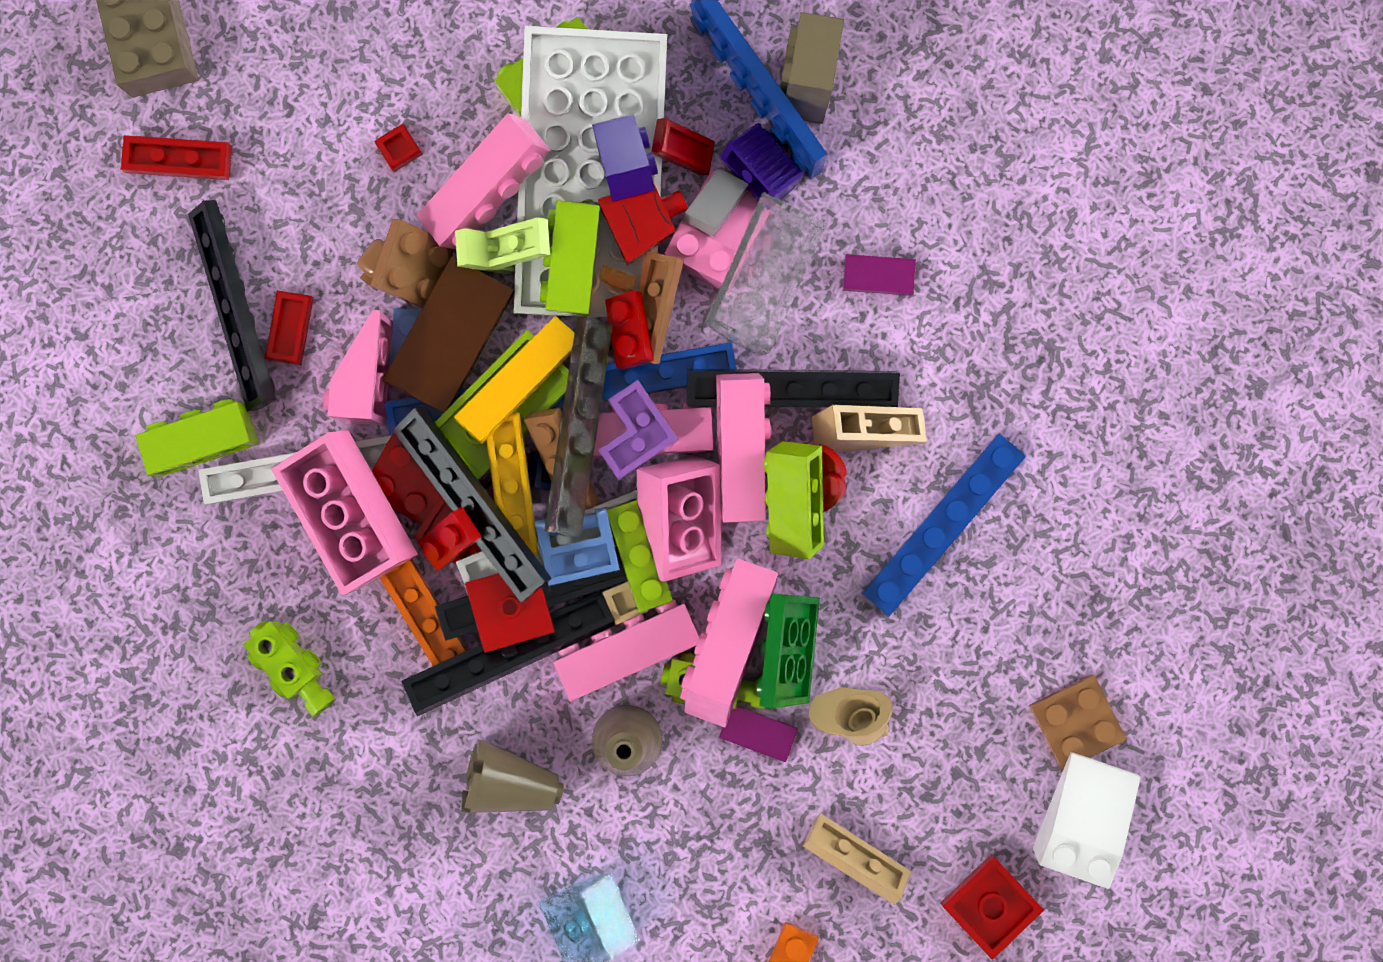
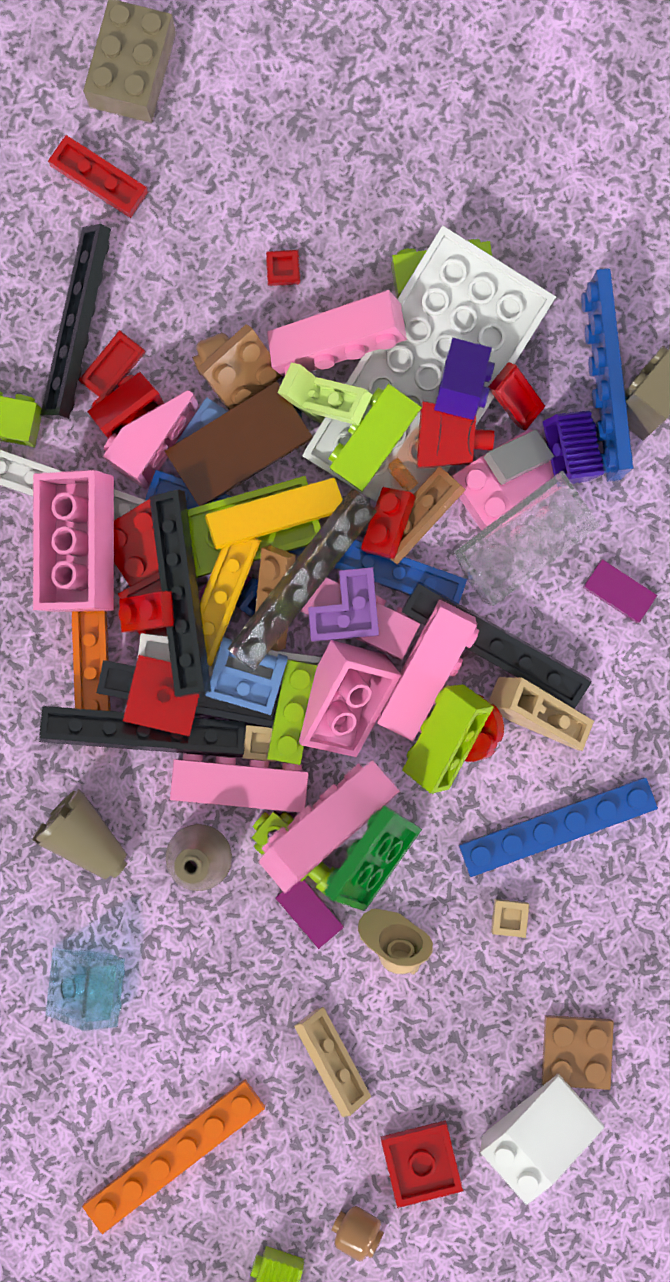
camera: 25 degrees right, 0 degrees up
(322, 355) = (124, 405): none -> red slope
(946, 633) = (510, 918): none -> tan plate

